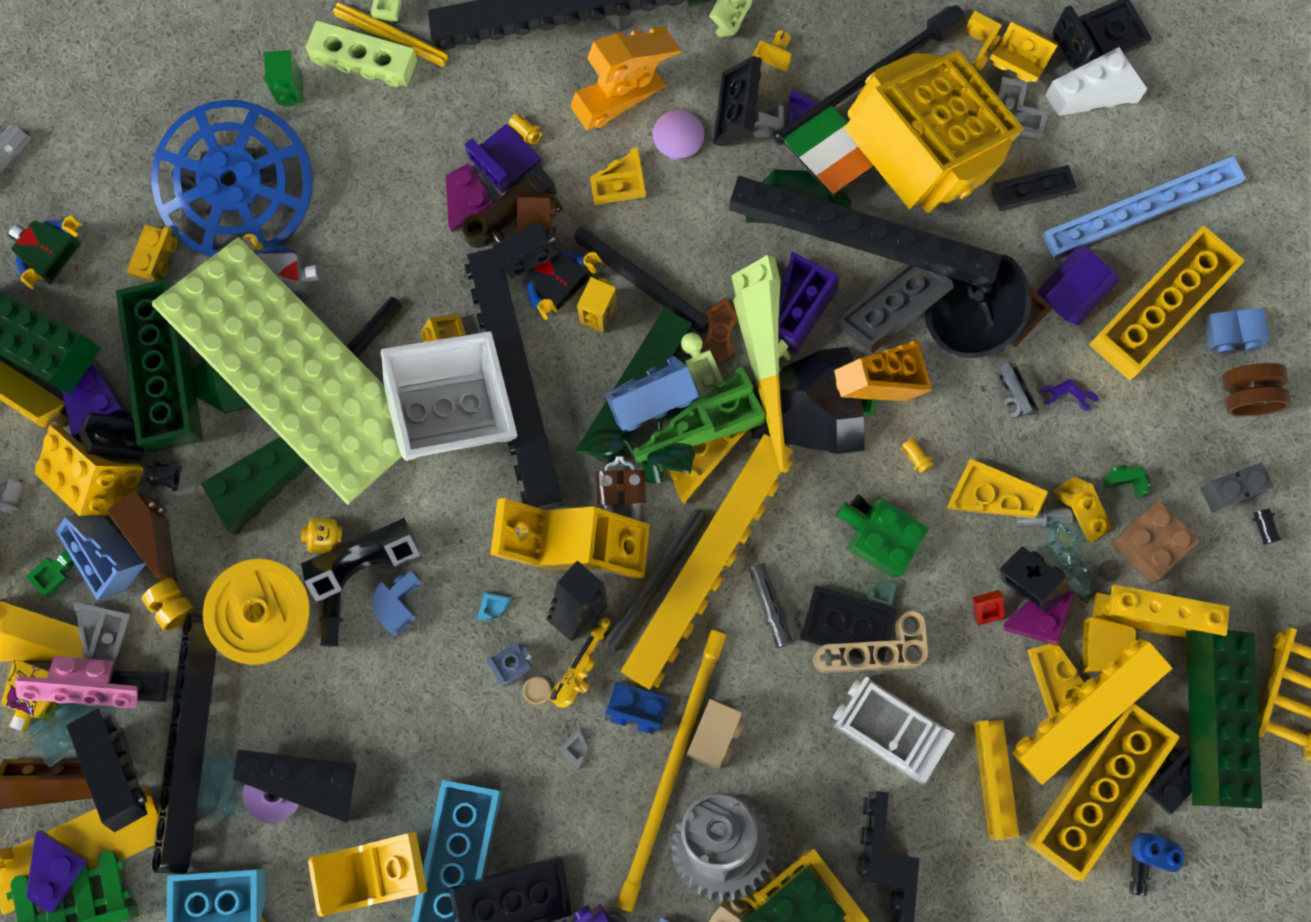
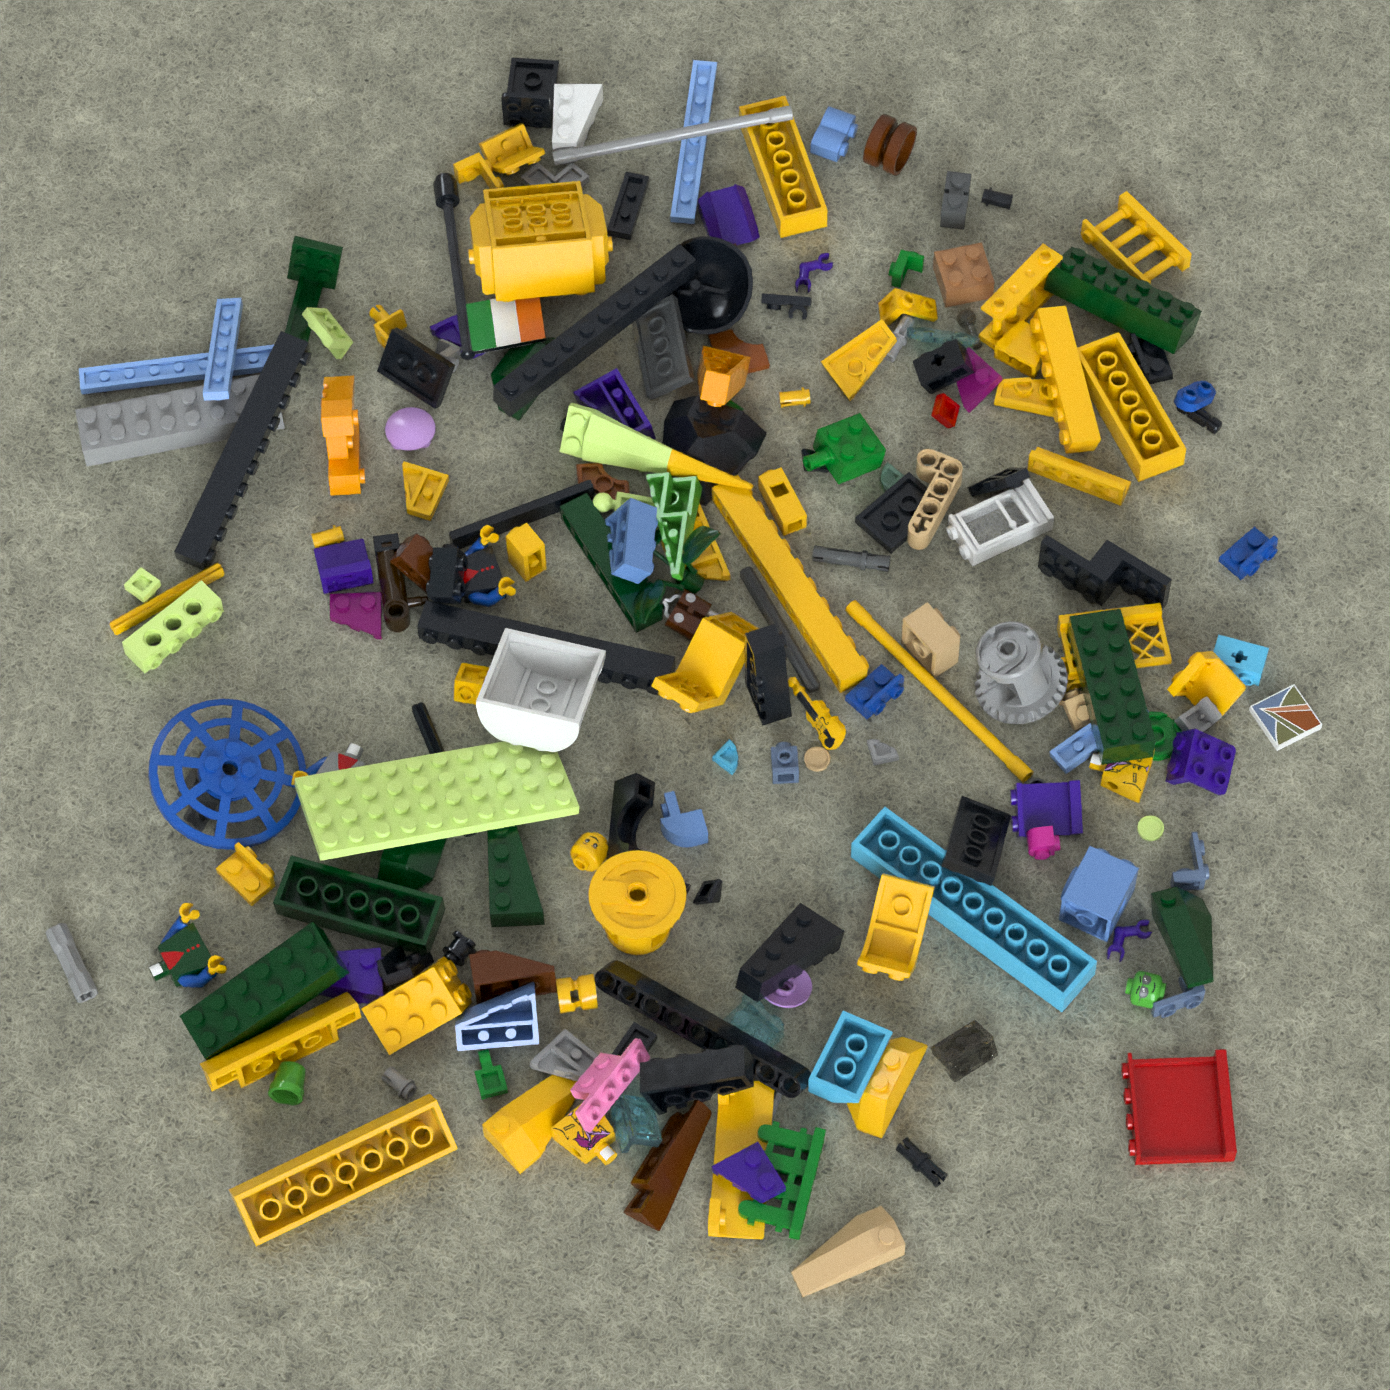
camera: 60 degrees left, 15 degrees down
(283, 77) = (159, 690): green brick -> none
(336, 667) = (709, 892): none -> black slope
(794, 505) = (782, 501): none -> yellow brick
(937, 706) = (1008, 478): none -> black wing
(938, 367) = (730, 342): none -> dark orange tile
(1210, 261) = (771, 116): none -> light grey piece

